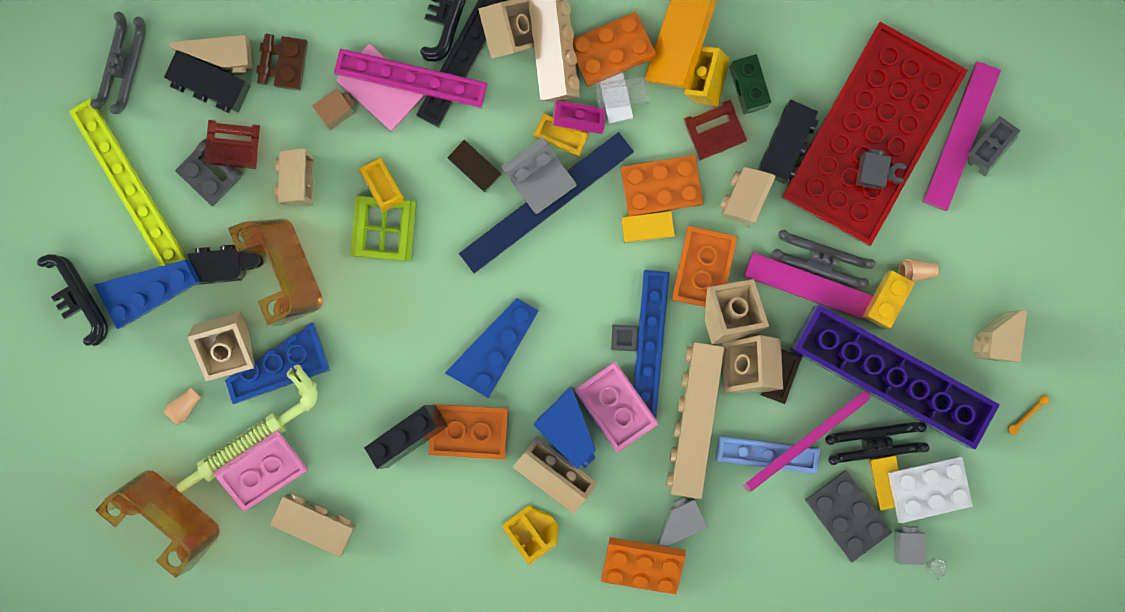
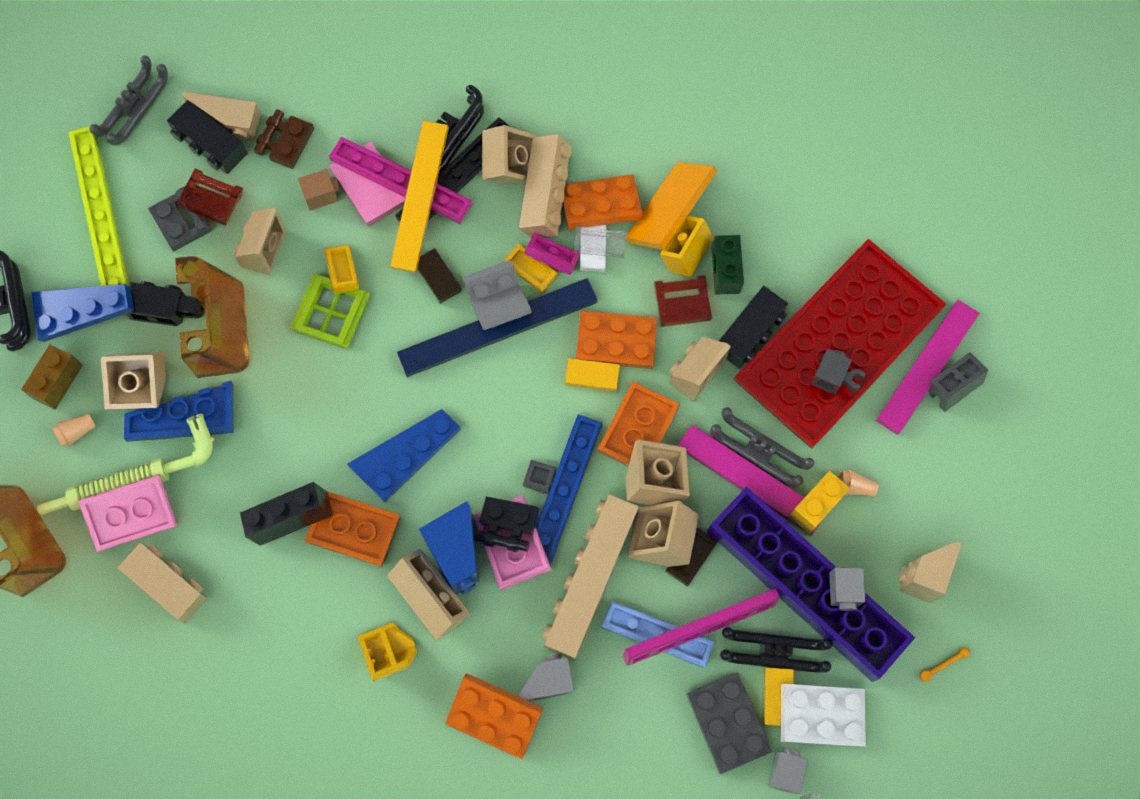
camera: 10 degrees right, 15 degrees down
(145, 363) = (52, 377): none -> pearl gold brick
(436, 93) = (419, 197): none -> yellow tile
(608, 385) = (508, 516): none -> black plate
(931, 378) = (847, 588): none -> light grey brick

